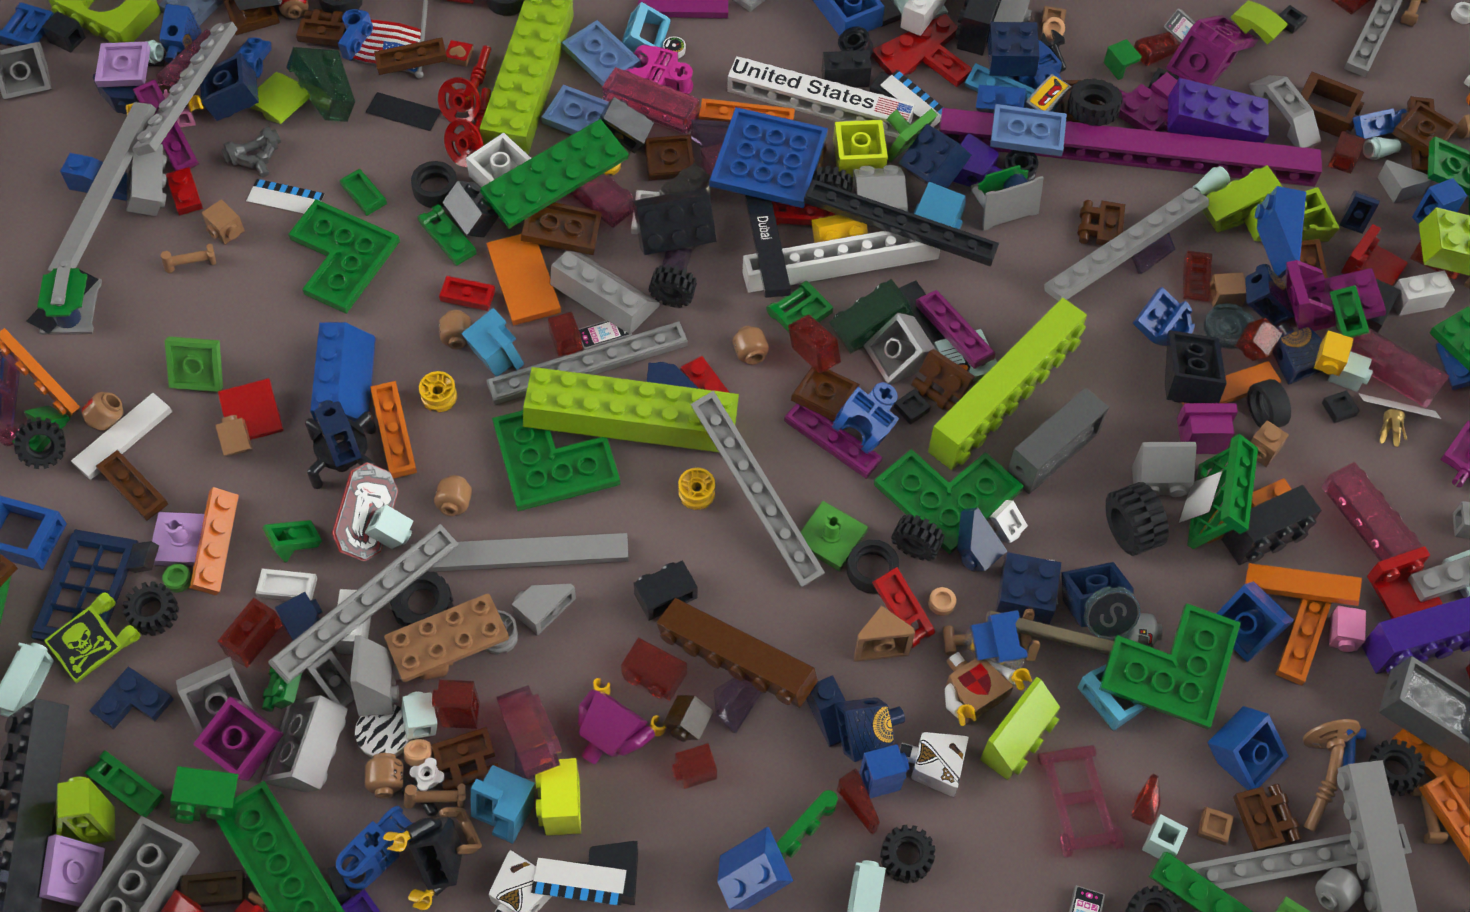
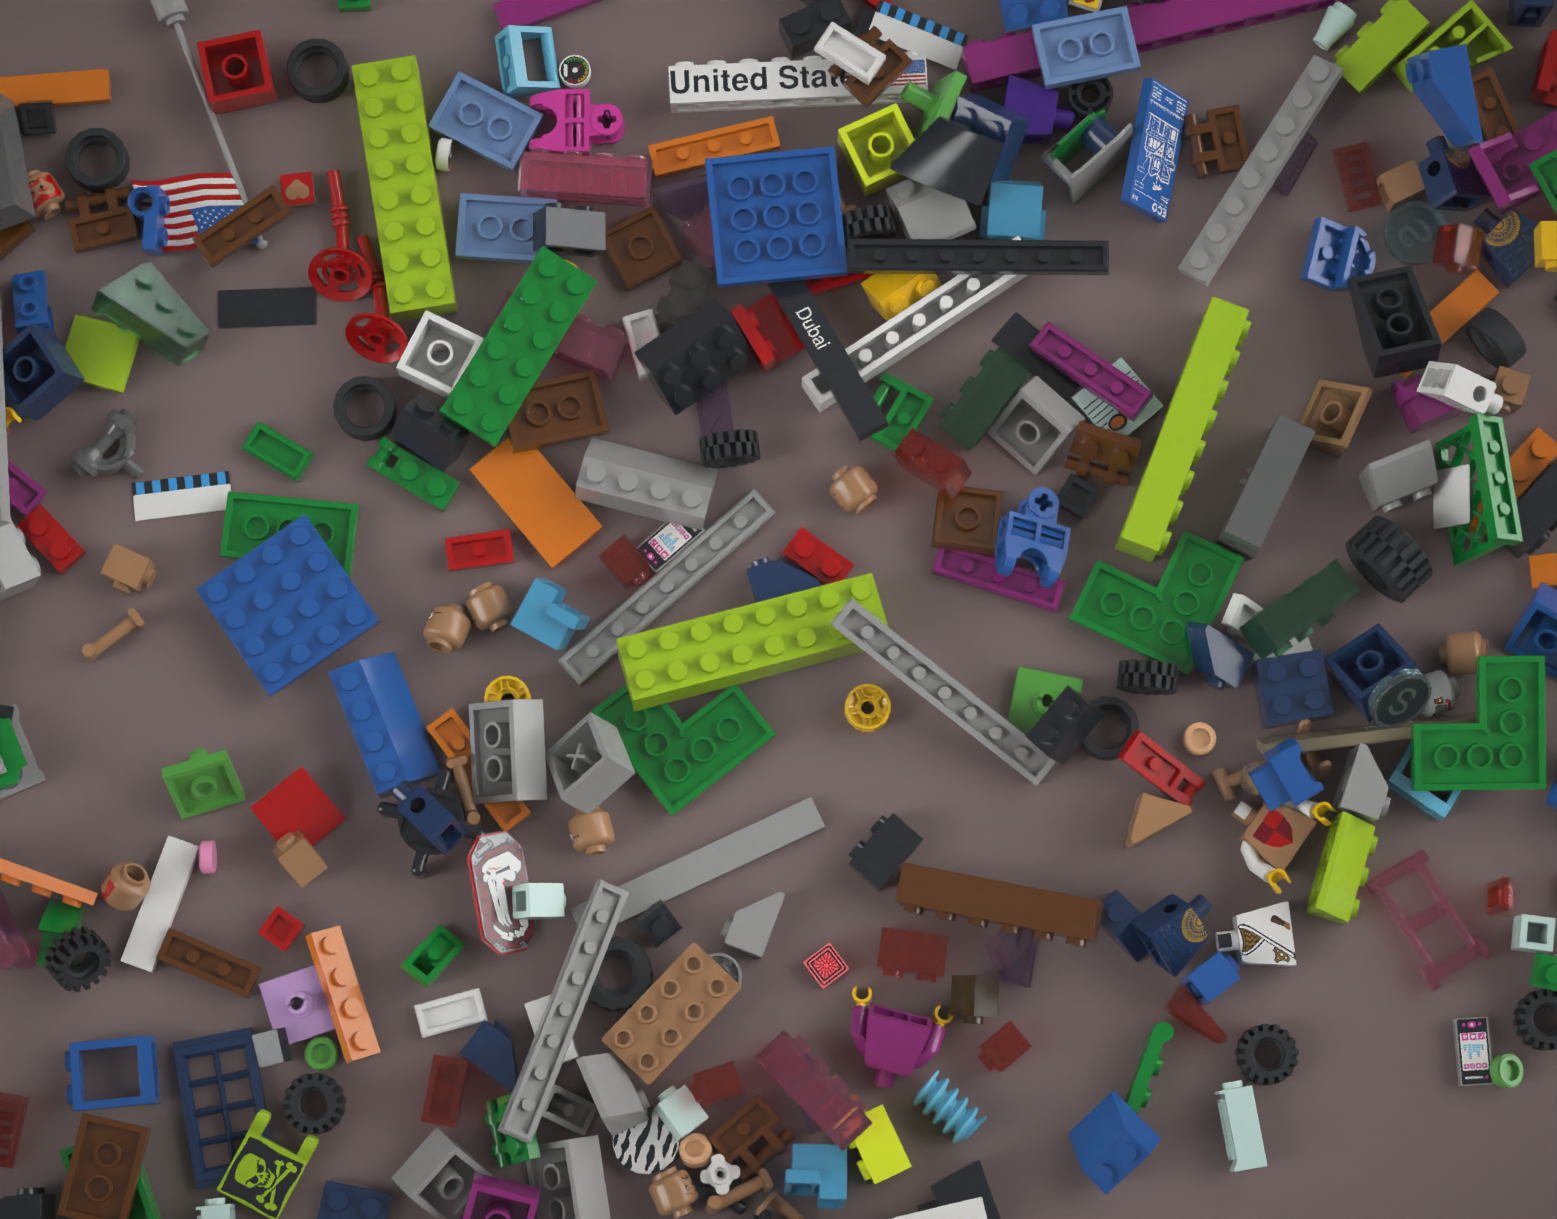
camera: 20 degrees left, 20 degrees up
(171, 415) = (208, 857): none -> bright pink tile
(195, 481) = (281, 929): none -> red plate
(316, 277) = (287, 605): none -> blue plate
(378, 414) = (463, 786): none -> medium nougat piece
(418, 331) = (447, 628): none -> medium nougat head
(419, 416) = (508, 751): none -> light grey slope
(470, 578) = (658, 923): none -> black plate
(472, 443) = (589, 763): none -> light grey brick
(564, 61) = (444, 154): none -> white tile
(583, 656) = (826, 965): none -> tile
(628, 796) = (948, 1108): none -> medium azure piece
(732, 230) = (767, 332): none -> red bracket
(840, 543) = (1065, 725): none -> black brick
(862, 78) = (850, 53): none -> white tile
(876, 99) = (894, 66): none -> reddish brown plate
(906, 155) = (951, 160): none -> black slope
(1054, 209) = (1154, 150): none -> blue tile
(1055, 530) = (1299, 611): none -> clear green wedge
(1061, 671) = (1361, 787): none -> light grey slope
(1129, 418) = (1335, 414): none -> medium nougat slope
(1170, 609) = (1461, 651): none -> medium nougat head
(1232, 411) = (1460, 388): none -> white torso

